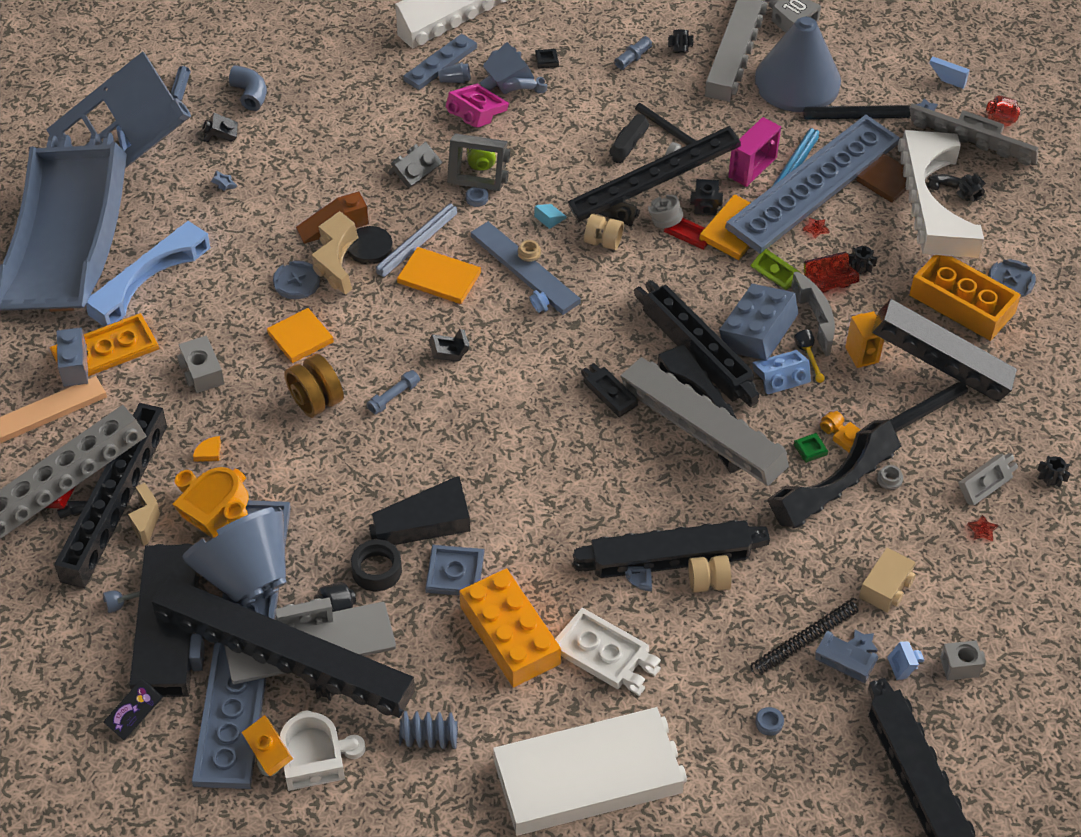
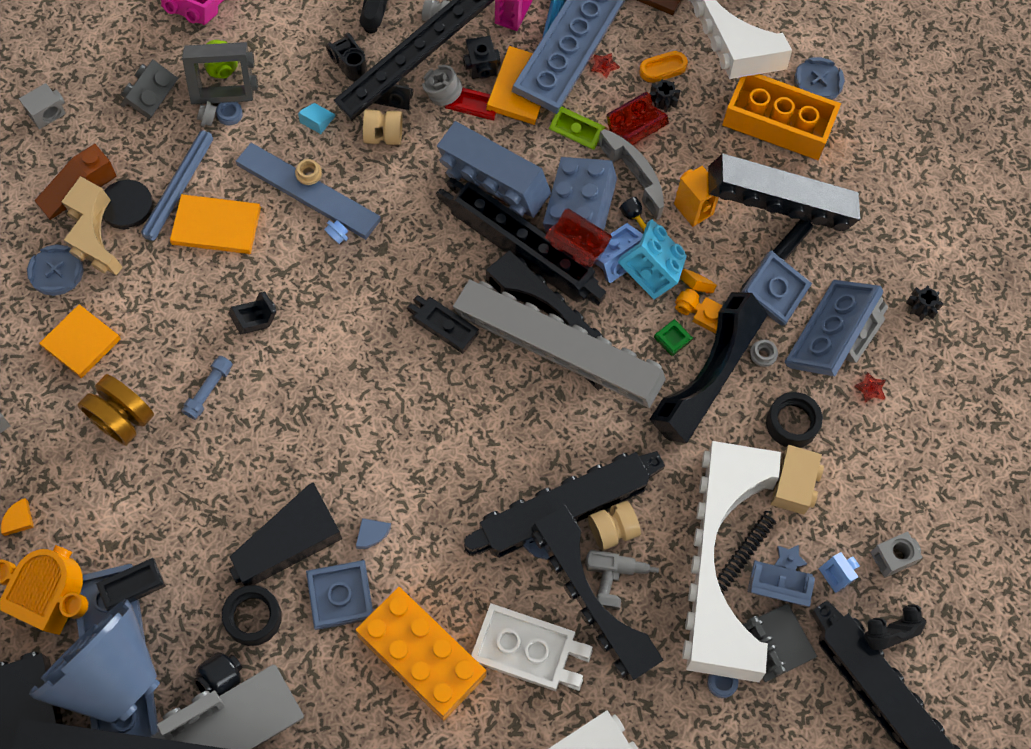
camera: 20 degrees left, 15 degrees up
(295, 513) = (131, 584): none -> black tile
(325, 158) = (43, 105): none -> light grey brick
(457, 192) = (206, 114): none -> light grey plate
(497, 531) = (371, 533): none -> sand blue tile
(590, 173) = (348, 57): none -> black piece
(688, 276) = (494, 169): none -> sand blue piece
(692, 667) = (630, 648): none -> black arch
(696, 607) = (611, 566): none -> light grey piece
(746, 342) = (578, 238): none -> clear red bracket
(772, 674) = (717, 638): none -> white arch
(810, 381) = (655, 261): none -> medium azure bracket
(828, 702) = (786, 640): none -> dark grey hinge
(847, 409) = (697, 281): none -> light orange tile
(873, 238) = (663, 66): none -> light orange tile
(902, 518) = (806, 404): none -> black tyre
(918, 428) = (777, 287): none -> sand blue tile
(920, 711) = (882, 637): none -> black piece
(960, 469) = (834, 327): none -> sand blue tile

